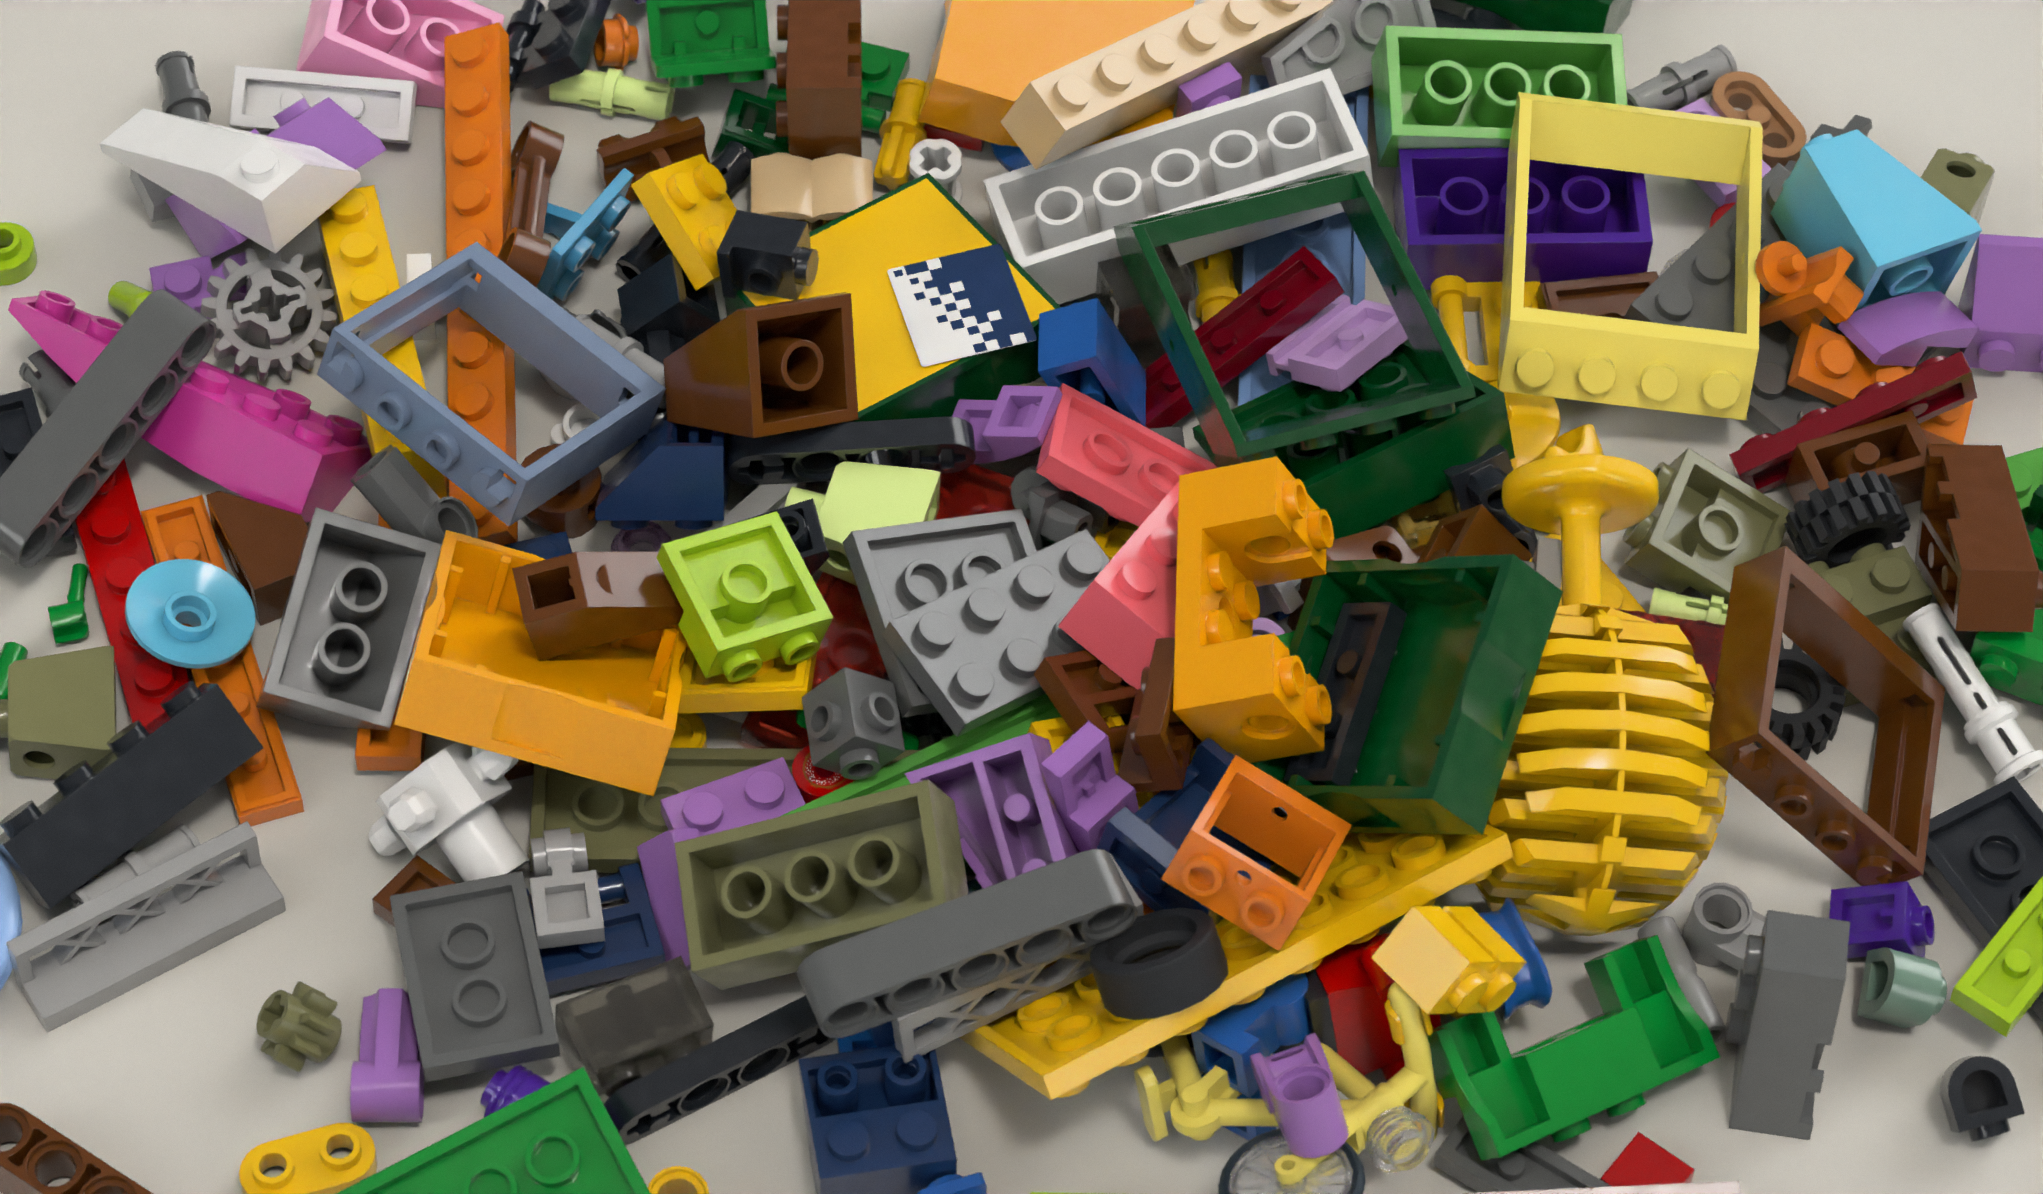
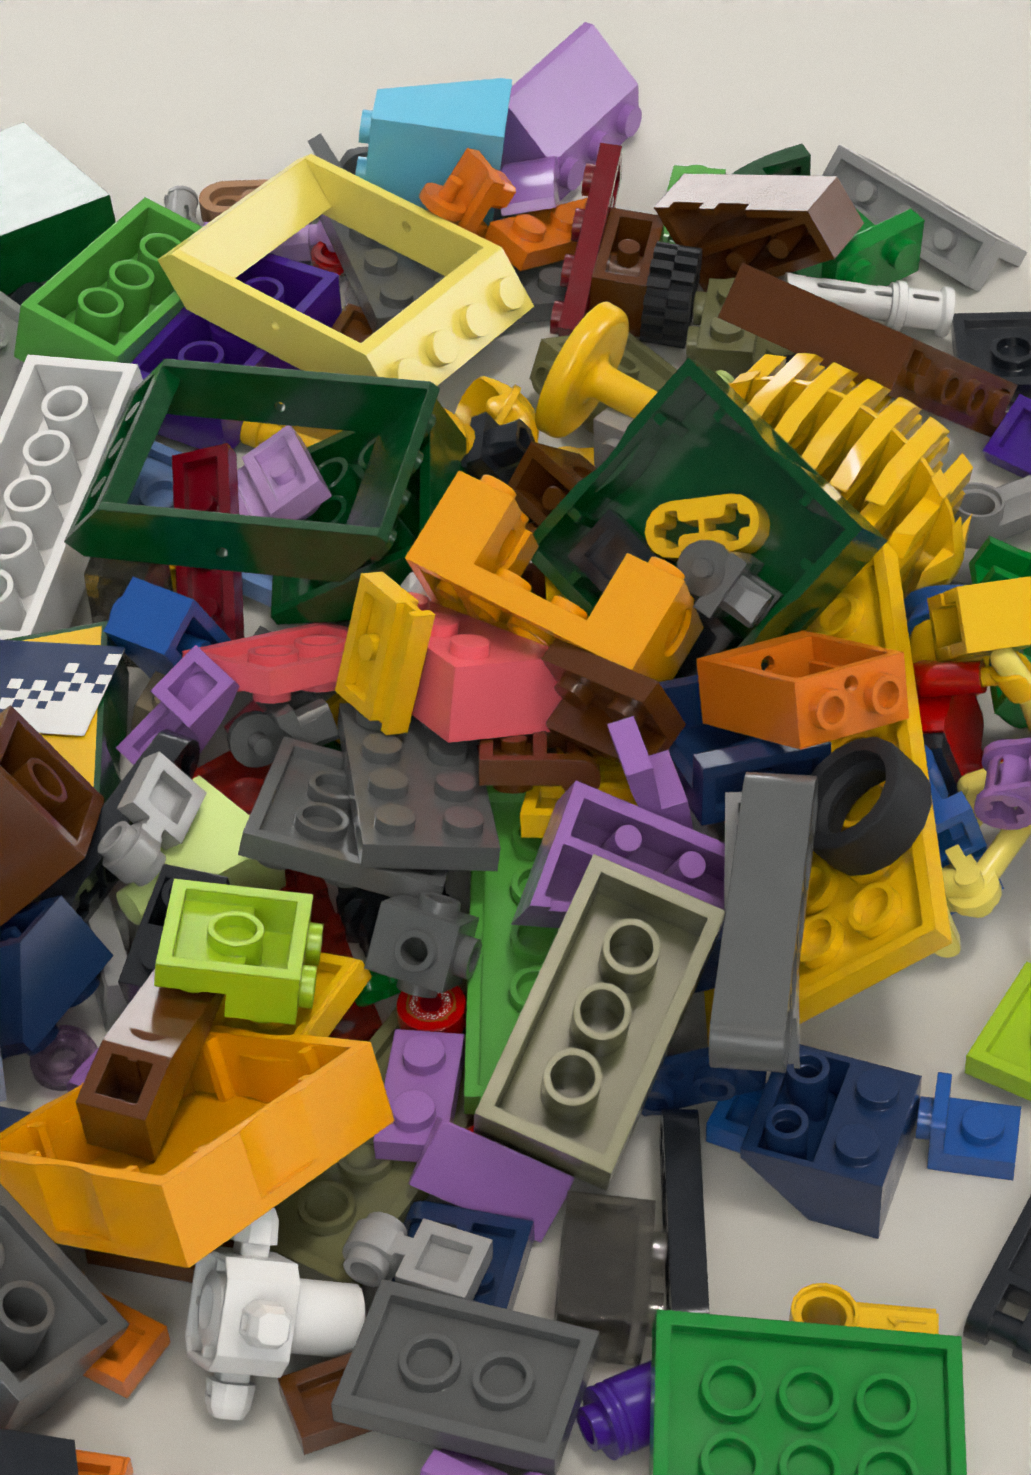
camera: 55 degrees left, 10 degrees down
(865, 461) = (162, 807): none -> light grey plate
(1108, 523) = (384, 652): none -> yellow plate
(1353, 741) = (727, 582): none -> dark grey hips
(1409, 695) = (707, 513): none -> yellow beam

